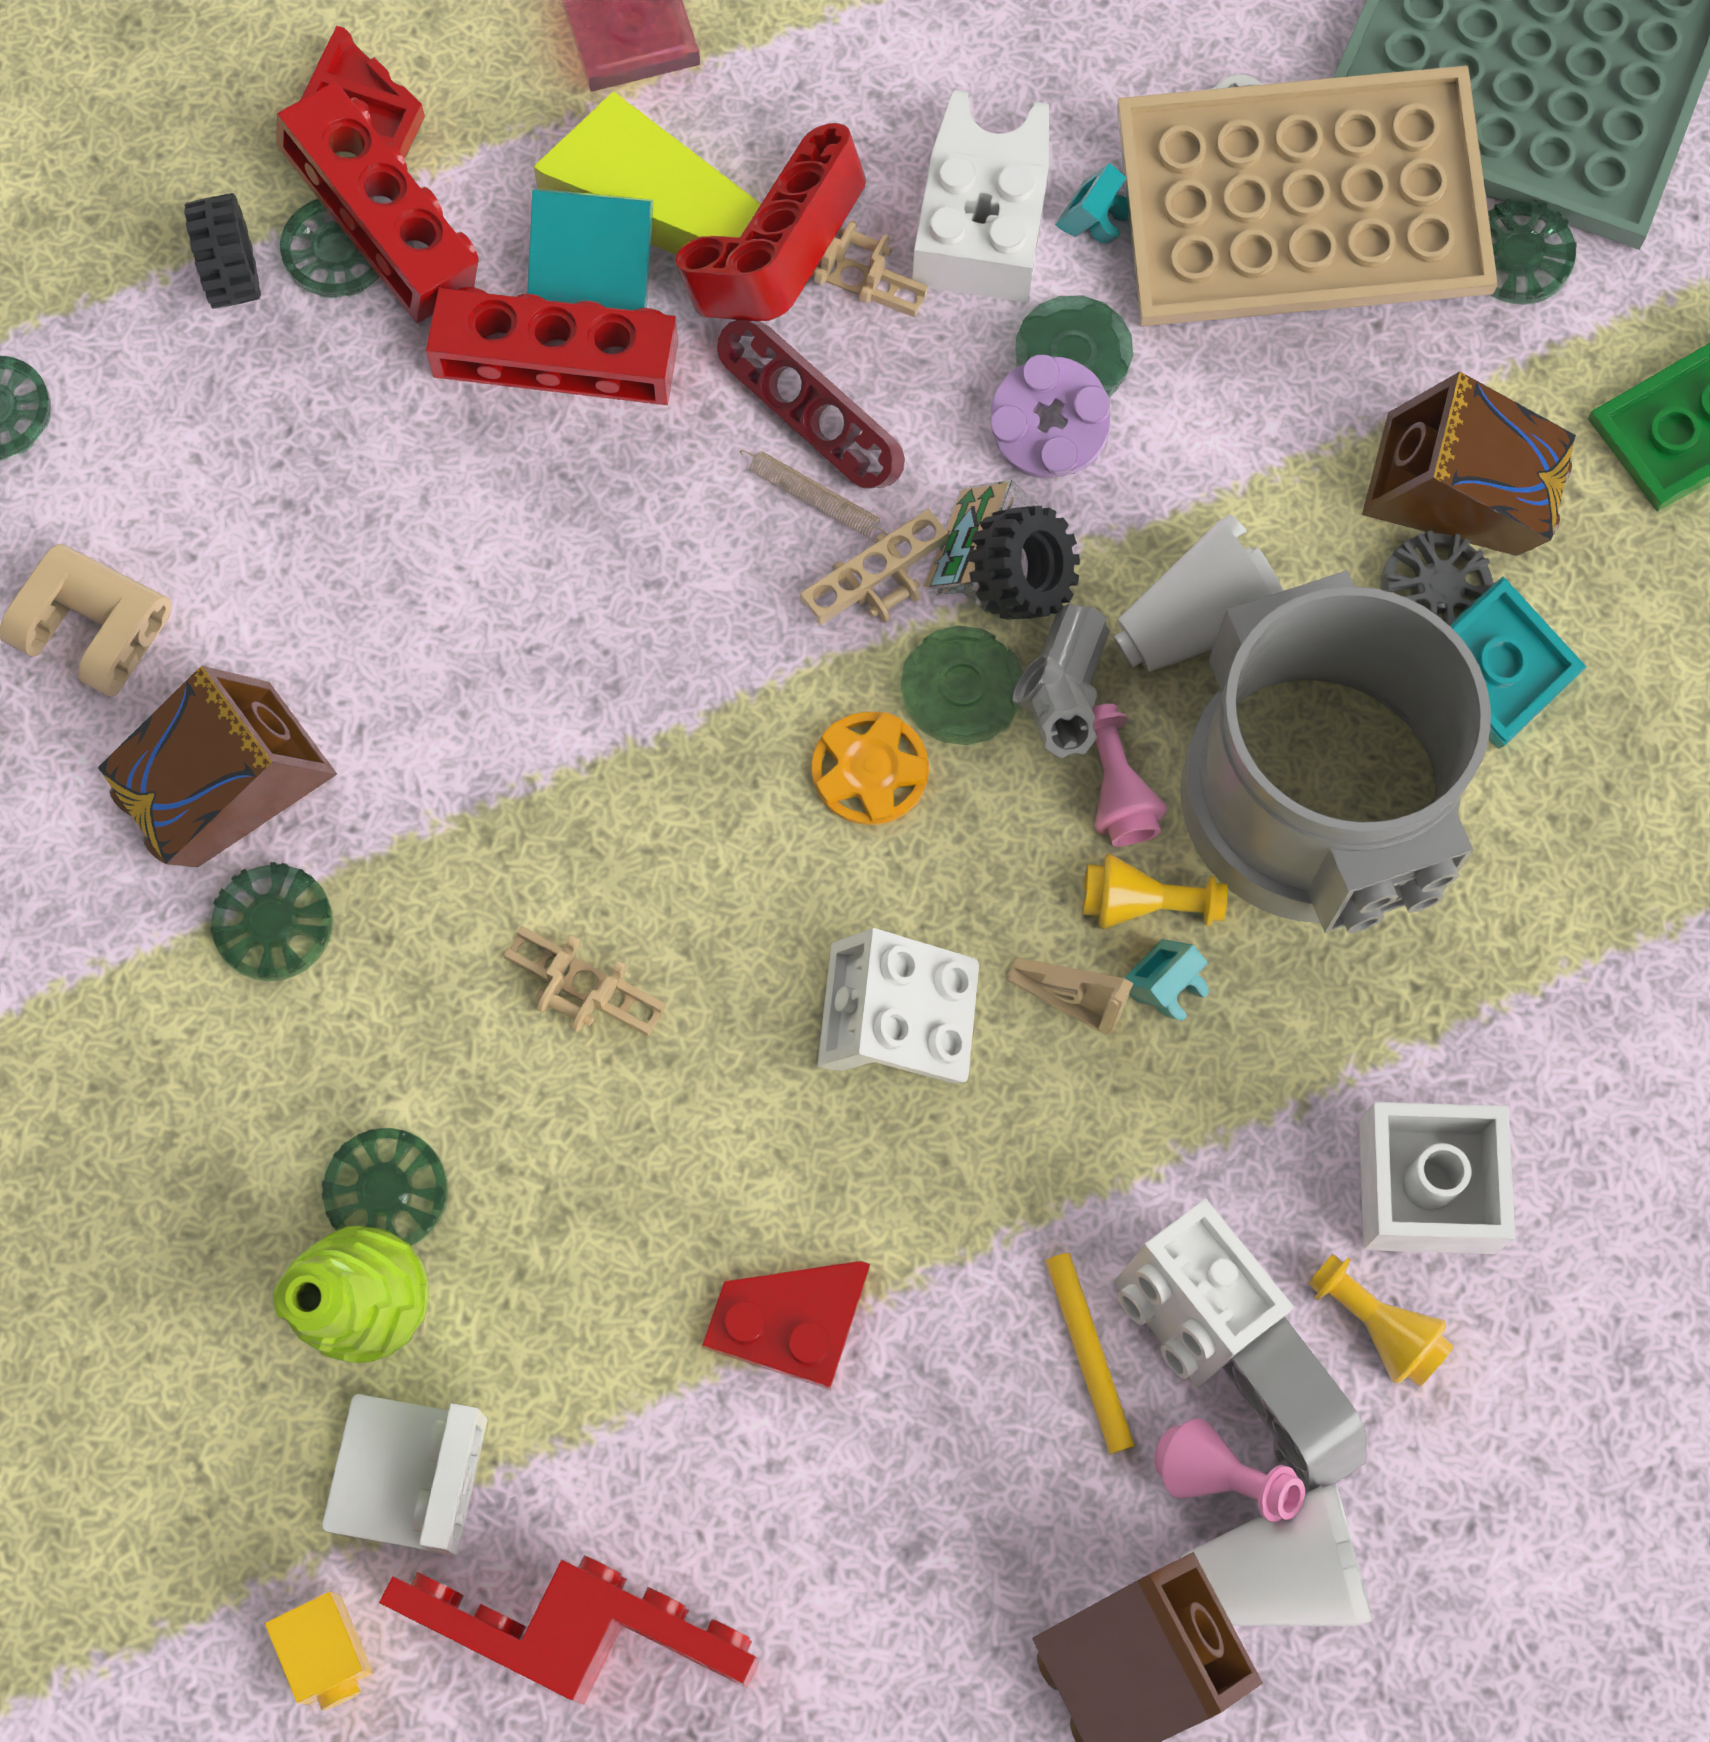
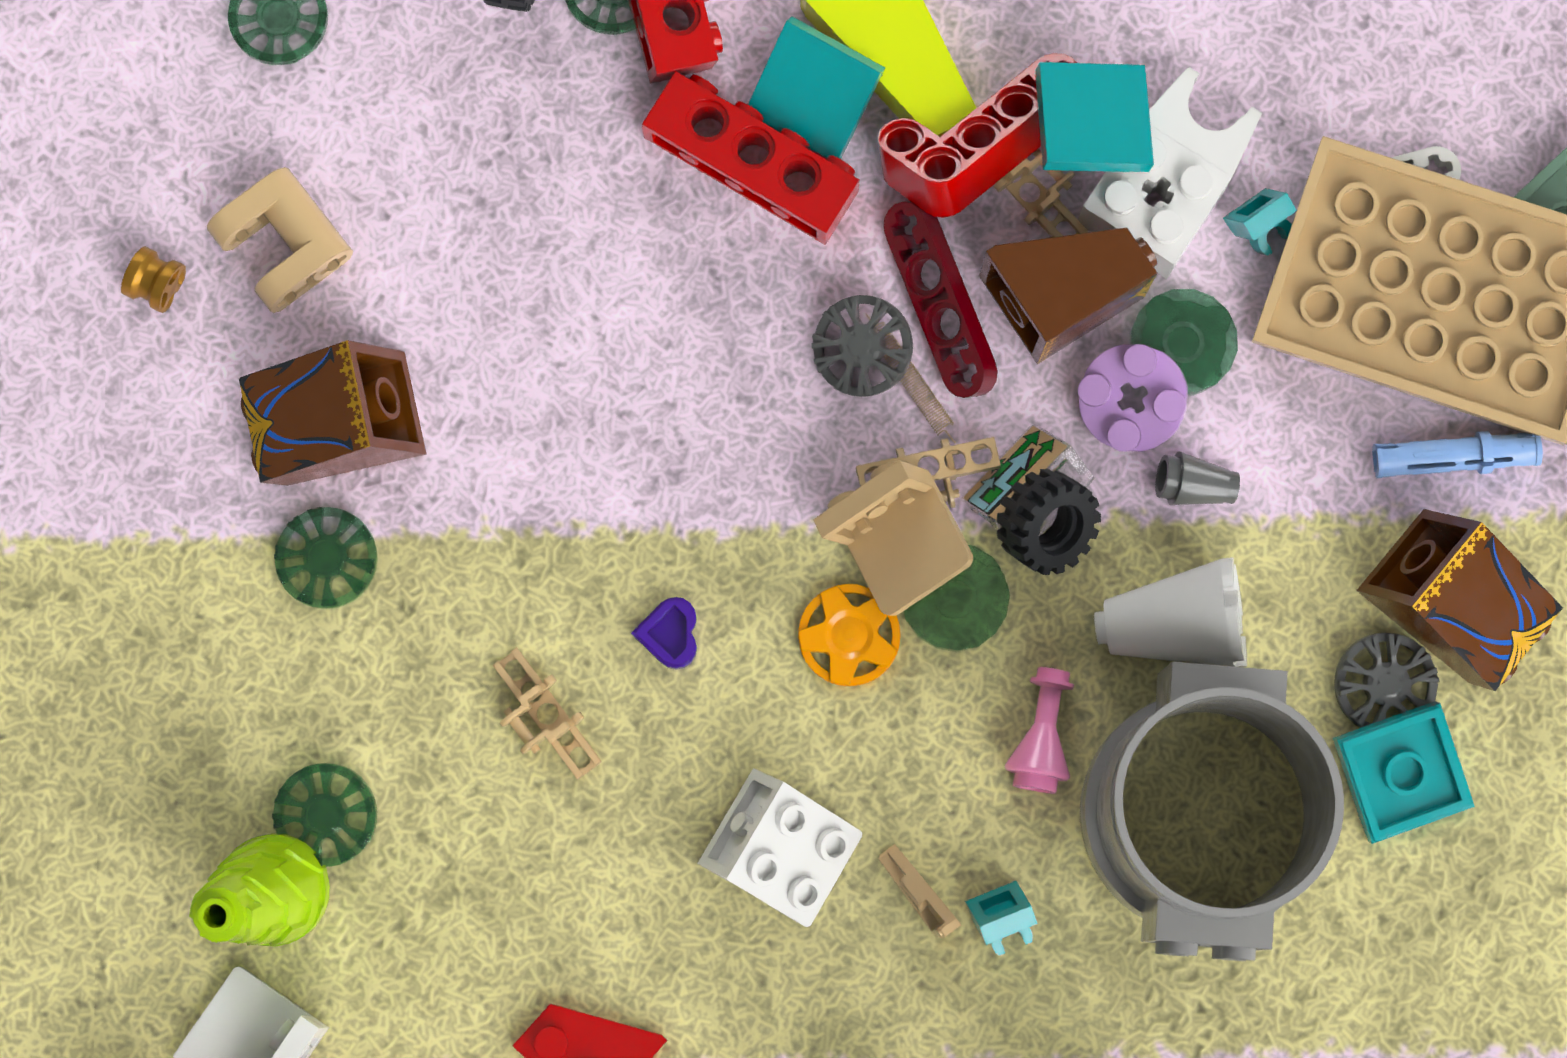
camera: 25 degrees right, 10 degrees up
(679, 845) = (668, 633): none -> dark purple tile
(751, 479) = (862, 345): none -> dark grey wheel
(875, 638) = (898, 535): none -> tan bracket
(886, 158) = (1094, 117): none -> teal tile
(931, 330) = (1067, 284): none -> reddish brown slope
(1059, 681) = (1028, 639): light grey piece -> none
(1122, 893) = (1002, 831): yellow piece -> none
(1150, 472) = (1195, 481): none -> dark grey cone
(1416, 334) = (1468, 453): none -> light blue pin

